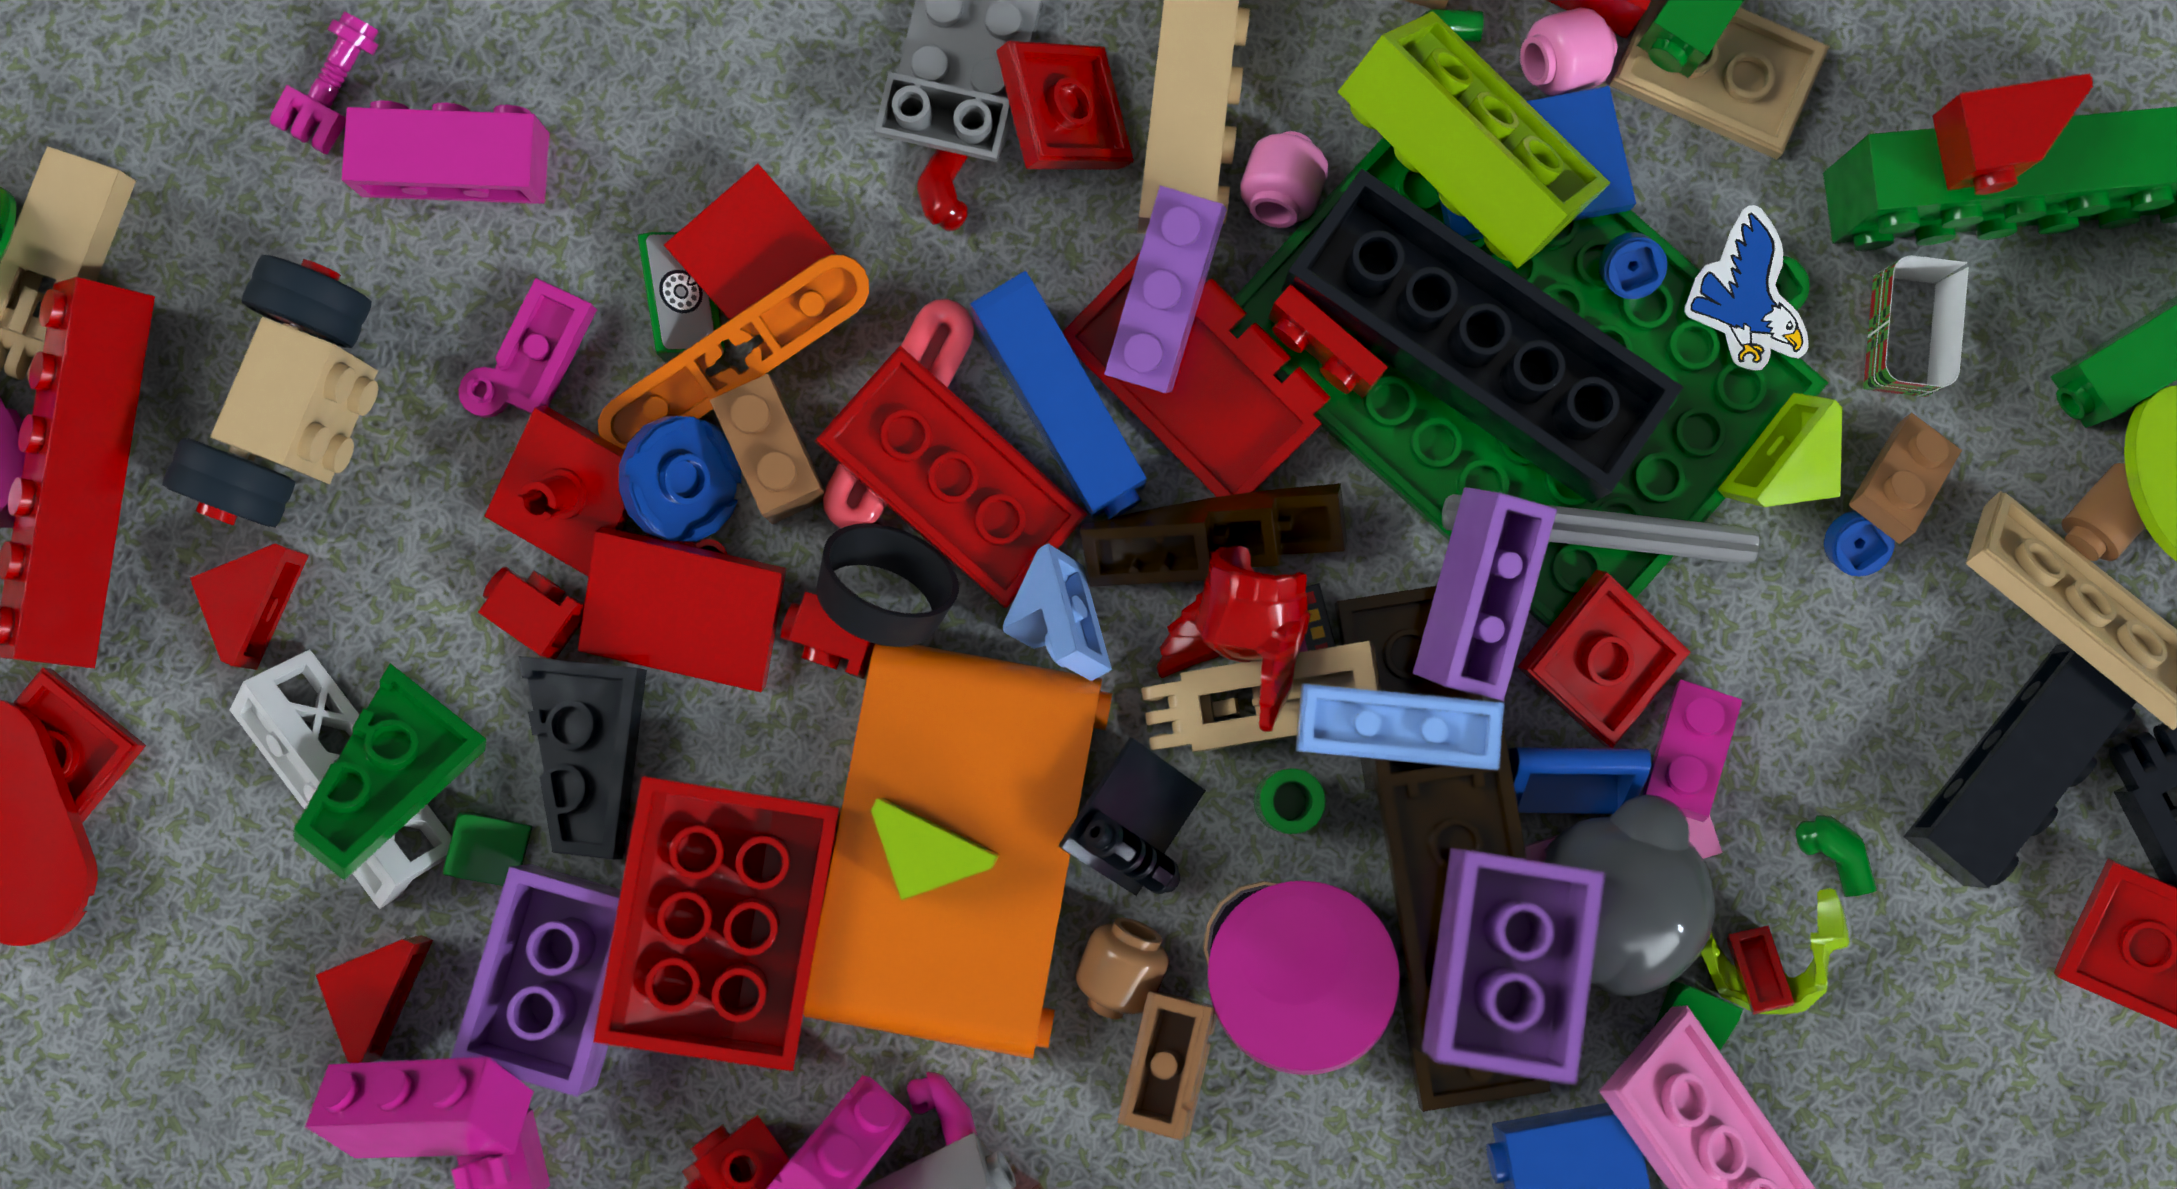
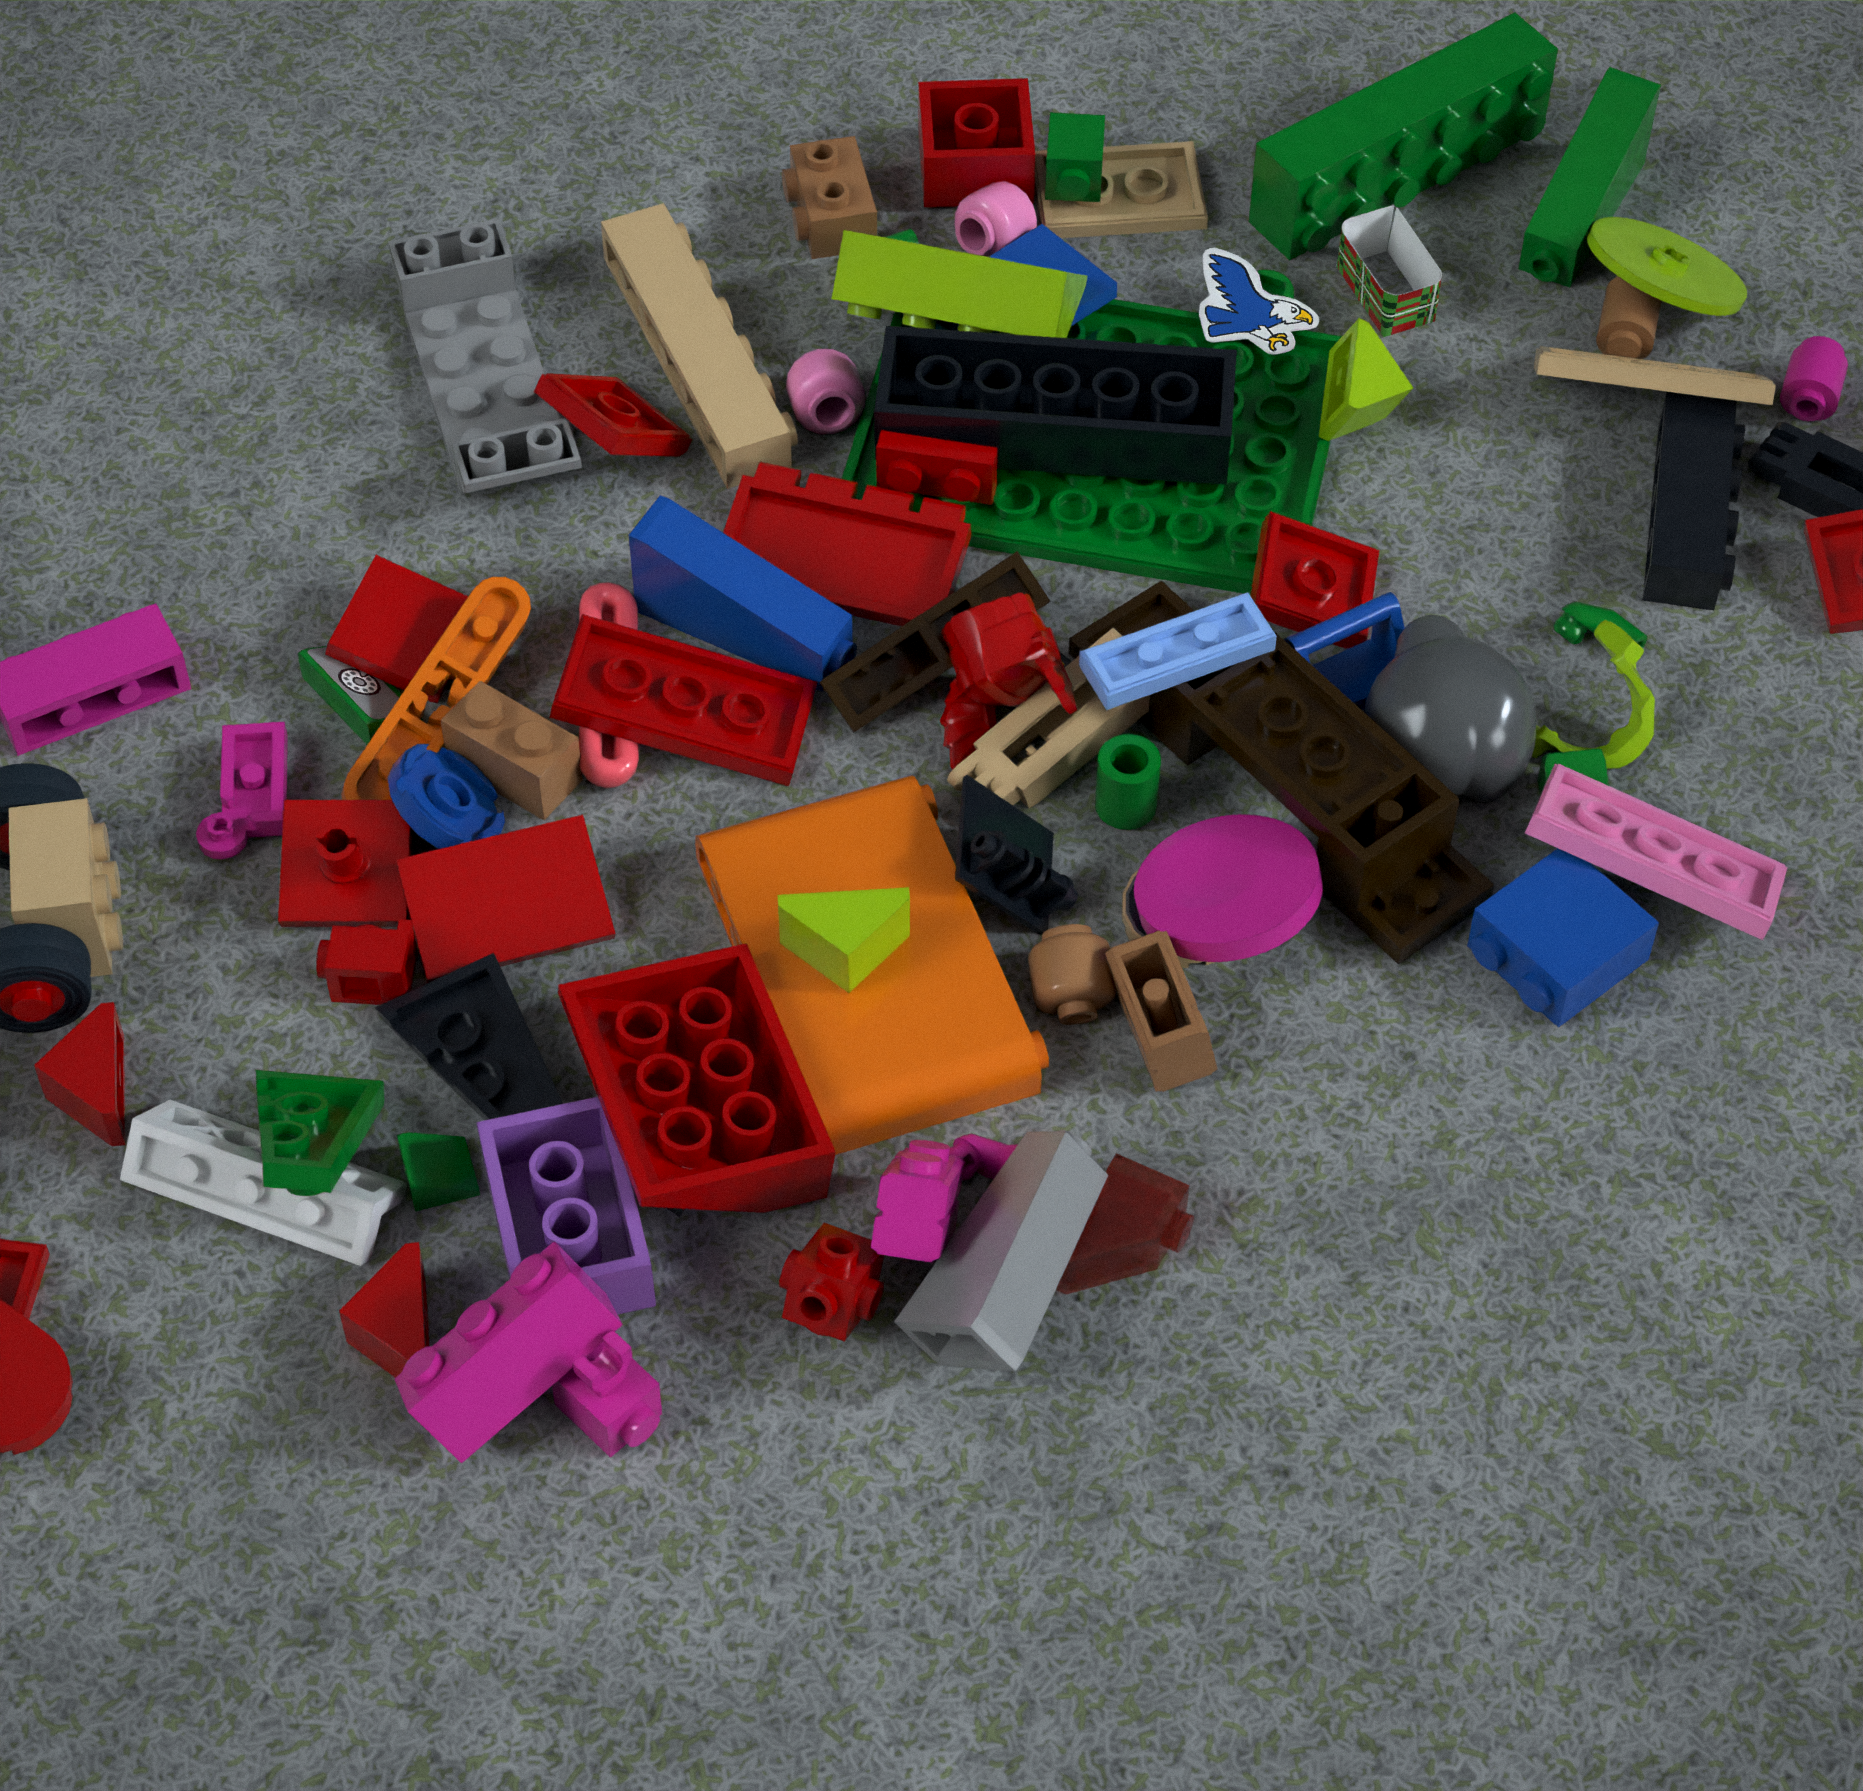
camera: 30 degrees left, 30 degrees down
(824, 639) = (652, 854): red brick -> none
(898, 553) = (679, 785): black tyre -> none
(938, 191) = (538, 525): red arm -> none
(1059, 613) = (837, 747): light blue slope -> none
(1165, 289) = (783, 477): medium lavender brick -> none
(1484, 592) = (1176, 535): medium lavender brick -> none
(1513, 965) = (1380, 738): medium lavender brick -> none
(1633, 265) = (1144, 318): blue tile -> none
(1642, 533) = (1243, 496): light grey axle -> none
(1693, 748) = (1427, 590): dark pink plate -> none
(1760, 970) = (1596, 726): red piece -> none
(1857, 545) = (1454, 424): blue tile -> none
(1905, 478) = (1456, 362): medium nougat plate -> none
(2004, 130) = (1346, 89): red slope -> none

